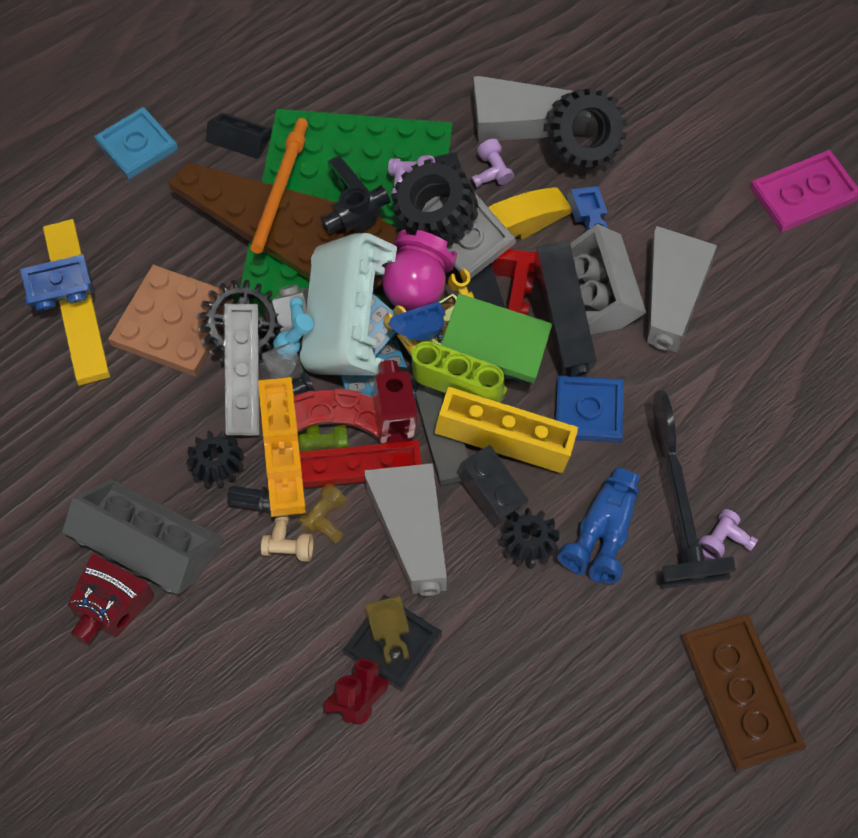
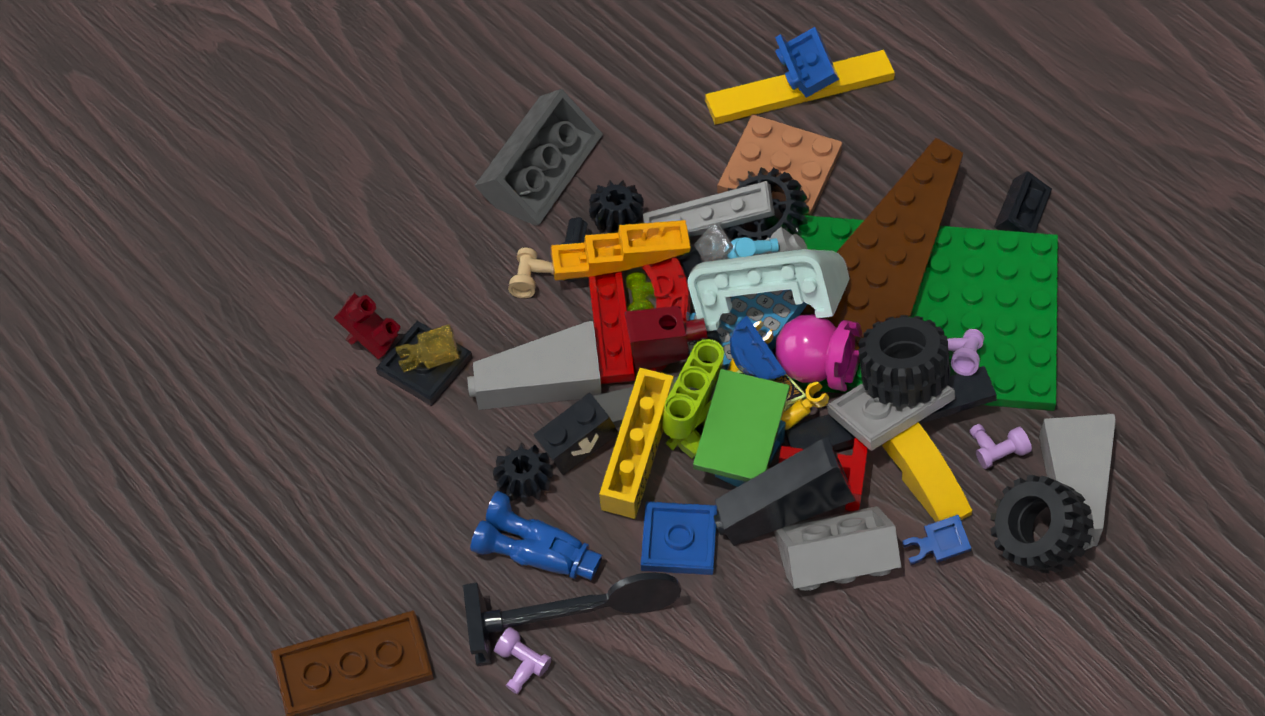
camera: 90 degrees right, 5 degrees down
(106, 599) = (474, 136): dark red torso -> none
(136, 143) = (1001, 118): dark azure tile -> none
(293, 145) = (996, 244): orange bar -> none
(315, 519) = (574, 305): clear yellow piece -> none
(356, 204) = (907, 295): black piece -> none
(676, 281) = (834, 624): light grey slope -> none

